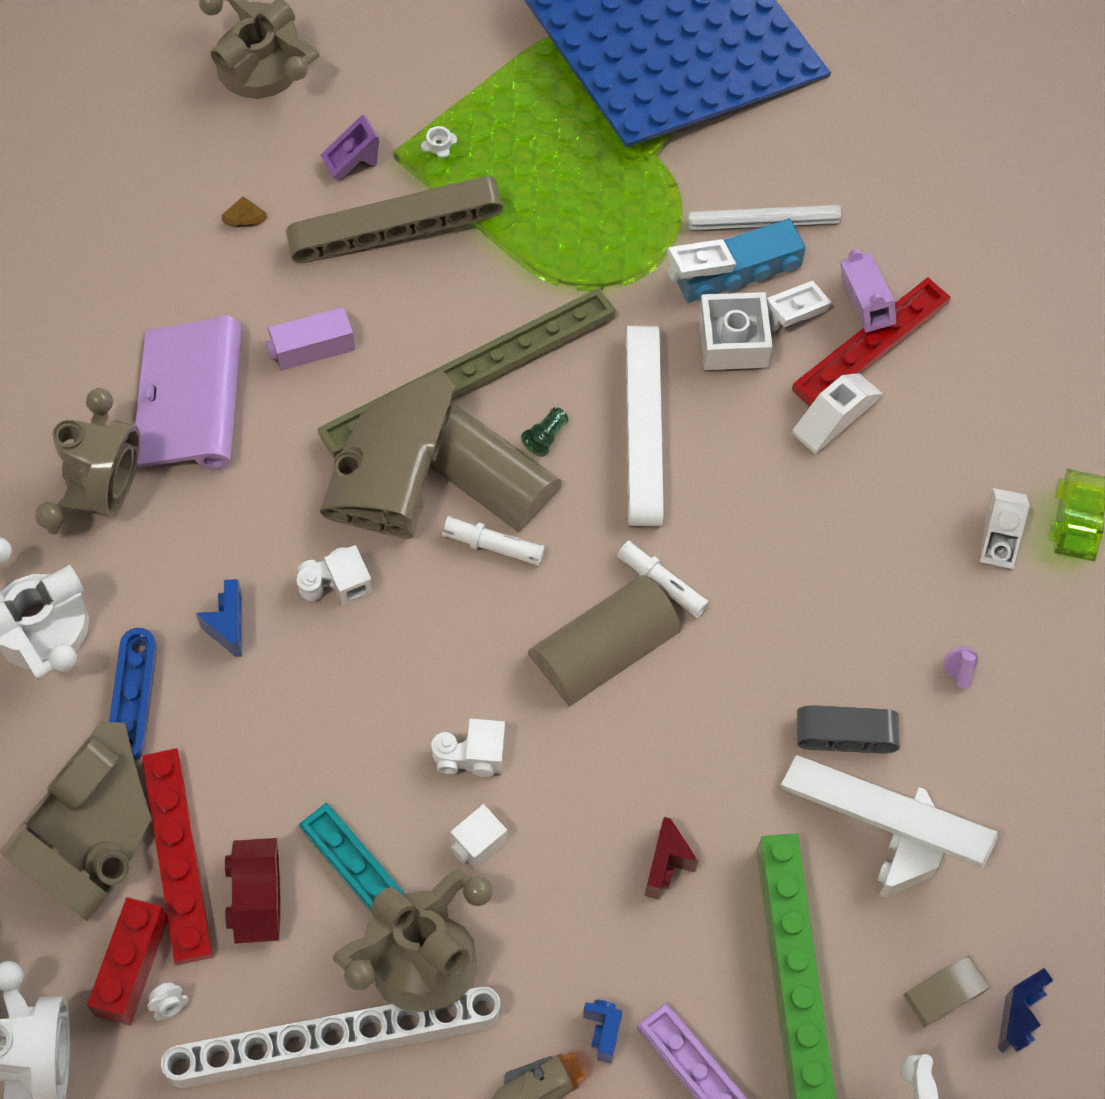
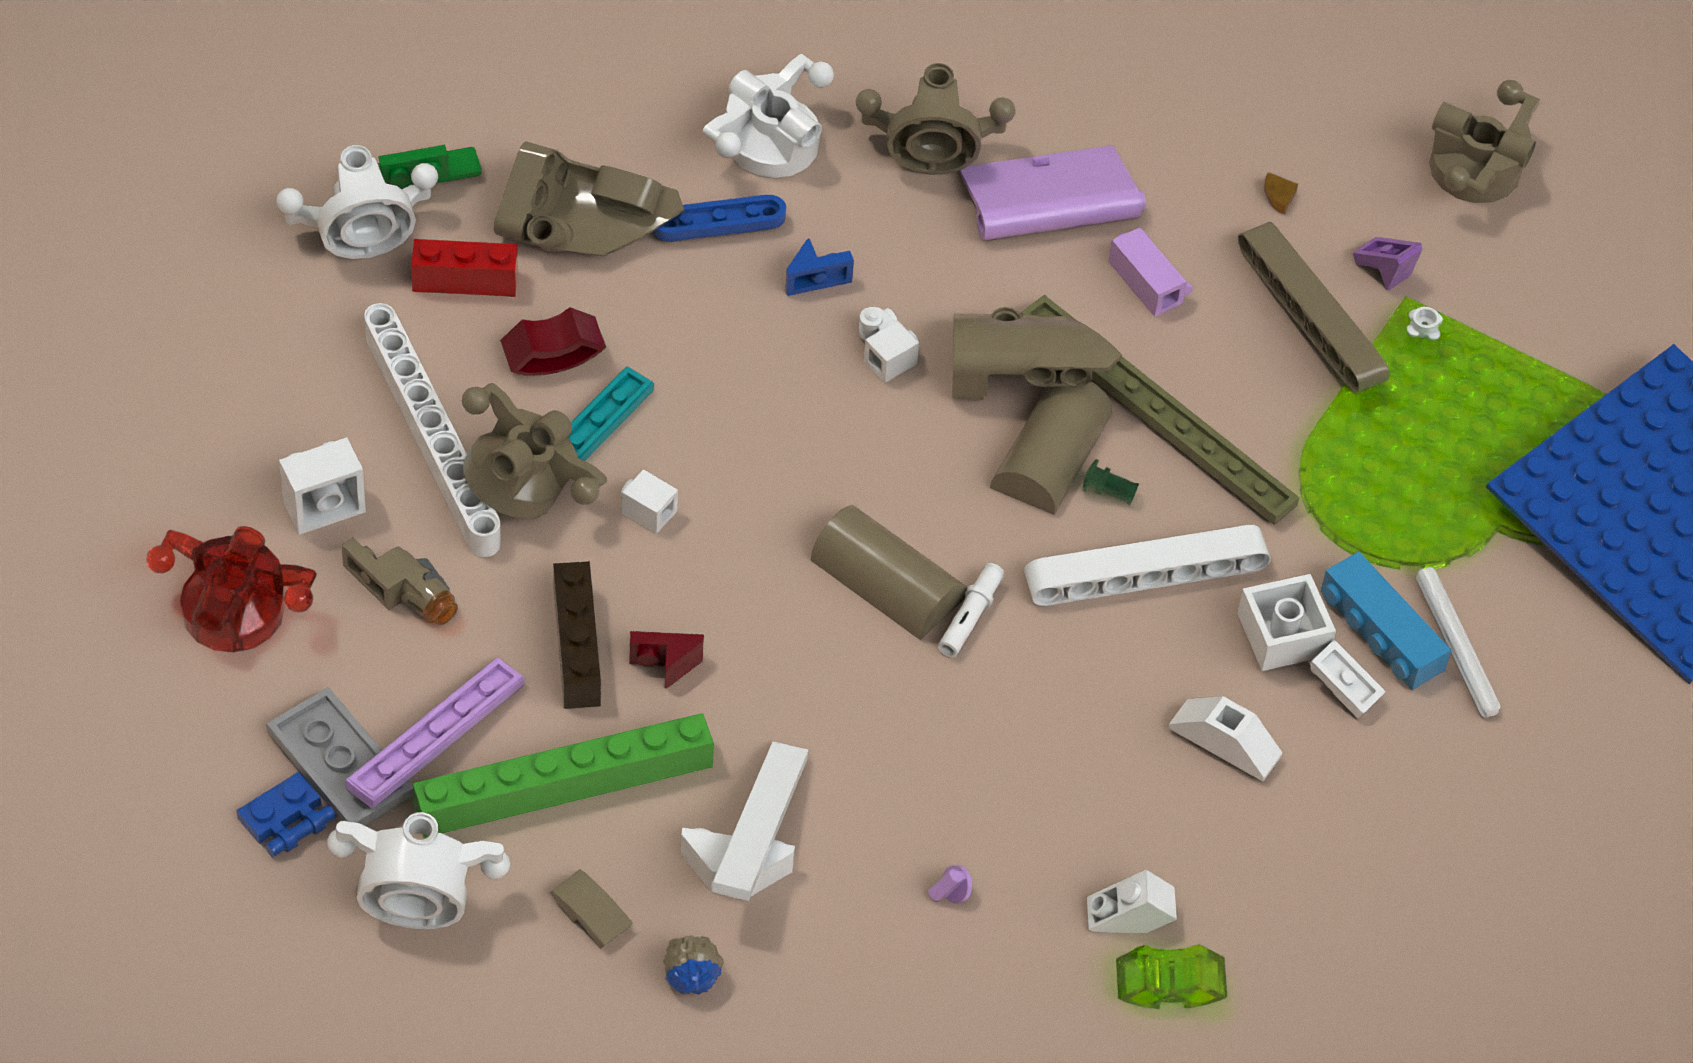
camera: 75 degrees right, 10 degrees down
(166, 1001) = (436, 304): white plate -> none
(177, 857) = (575, 286): red plate -> none
(478, 754) = (740, 487): white brick -> none
(494, 541) = (969, 450): white pin -> none
(606, 1035) = (484, 633): blue bracket -> none
(631, 939) = (576, 635): none -> dark brown brick
(699, 260) = (1351, 562): white plate -> none
(848, 729) = (848, 790): dark grey beam -> none
(867, 291) = (1384, 737): lavender brick -> none
(867, 348) = (1339, 766): red plate -> none
(1017, 1019) = (574, 967): clear blue slope -> none
(1029, 909) = (692, 964): none -> piece

